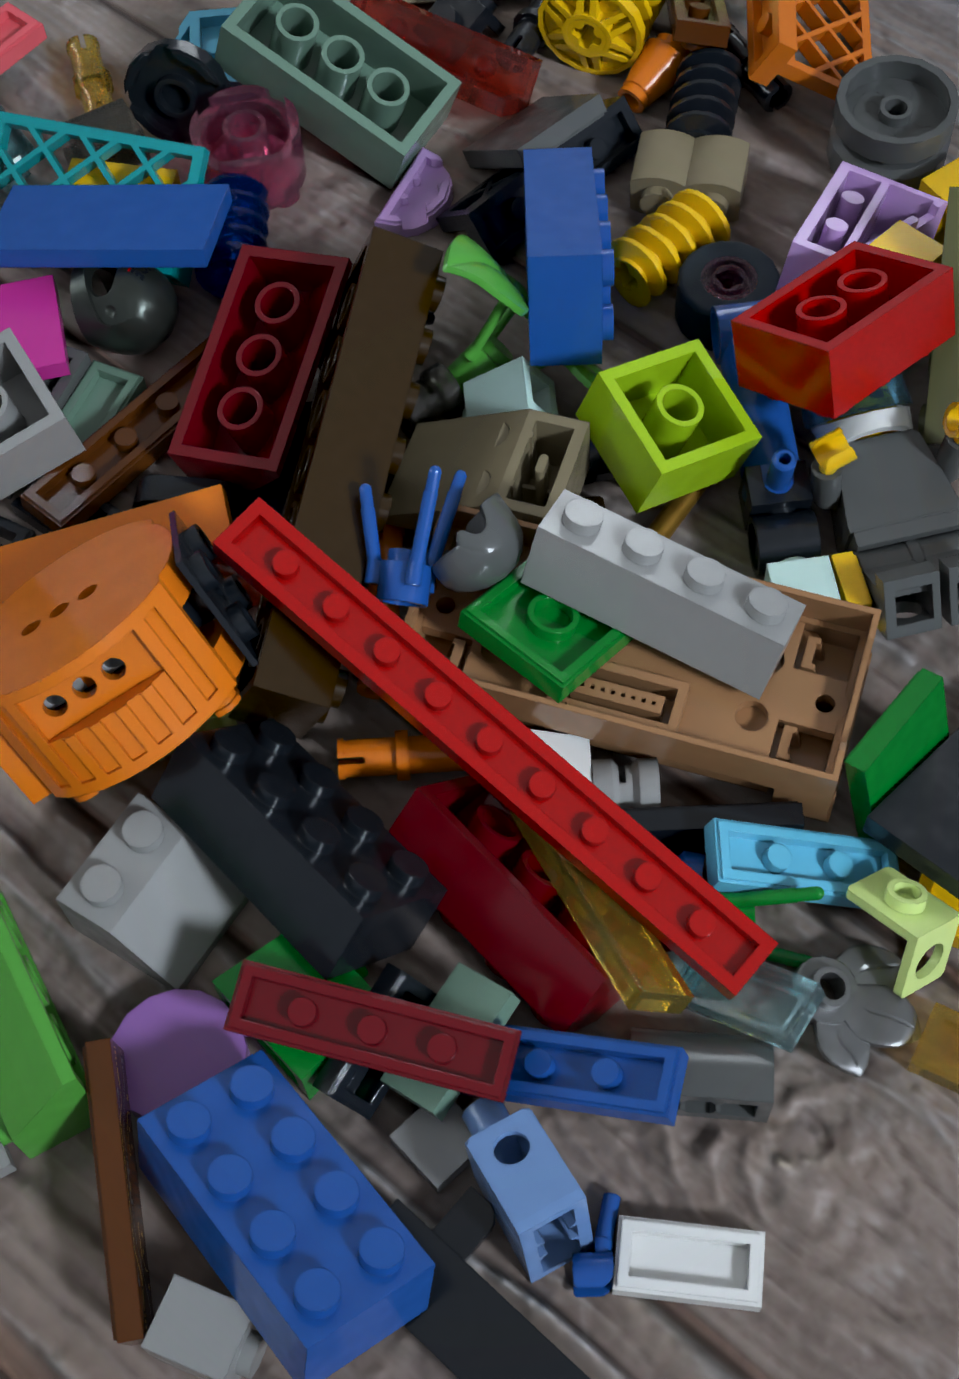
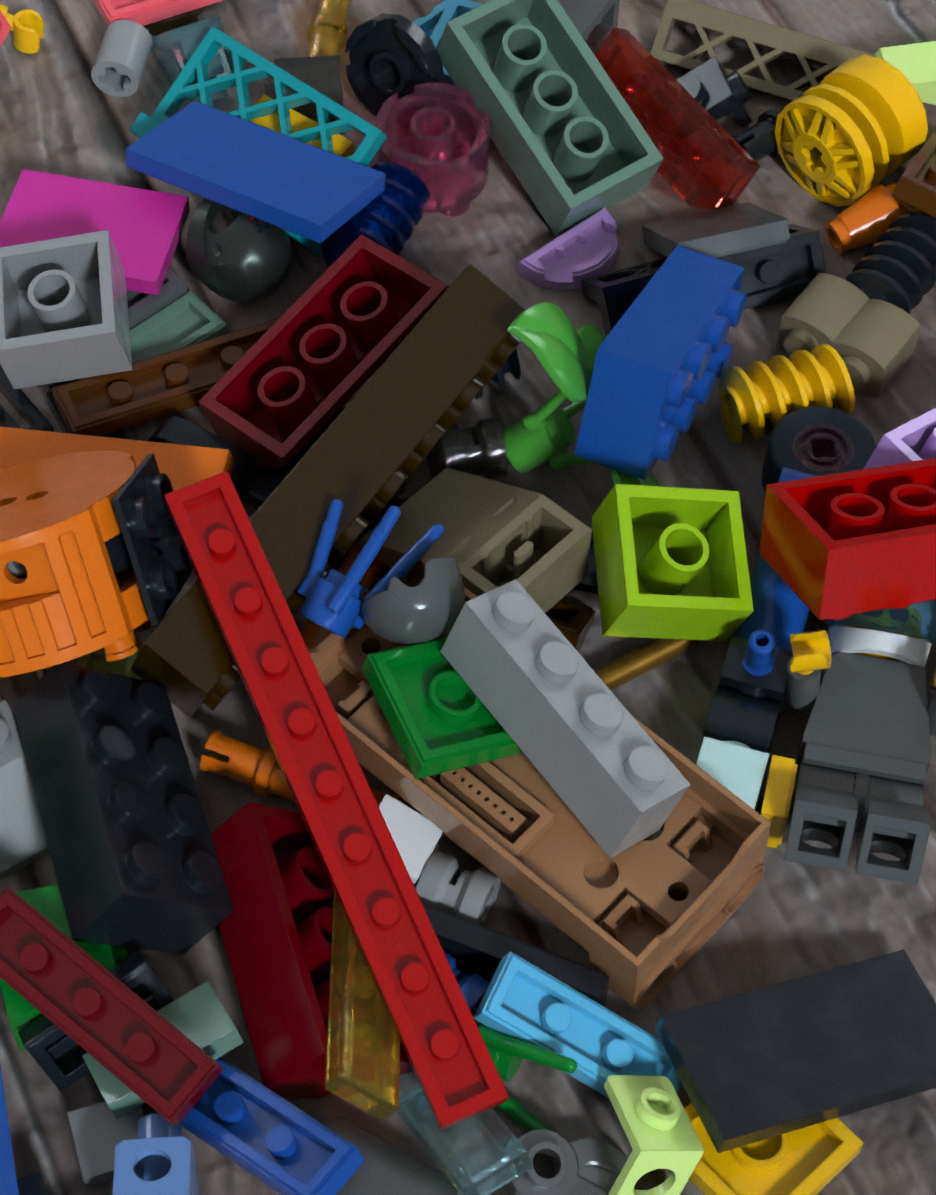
camera: 20 degrees right, 5 degrees down
(509, 389) = (552, 472): light aqua brick -> none
(897, 744) = (729, 957): green tile -> none

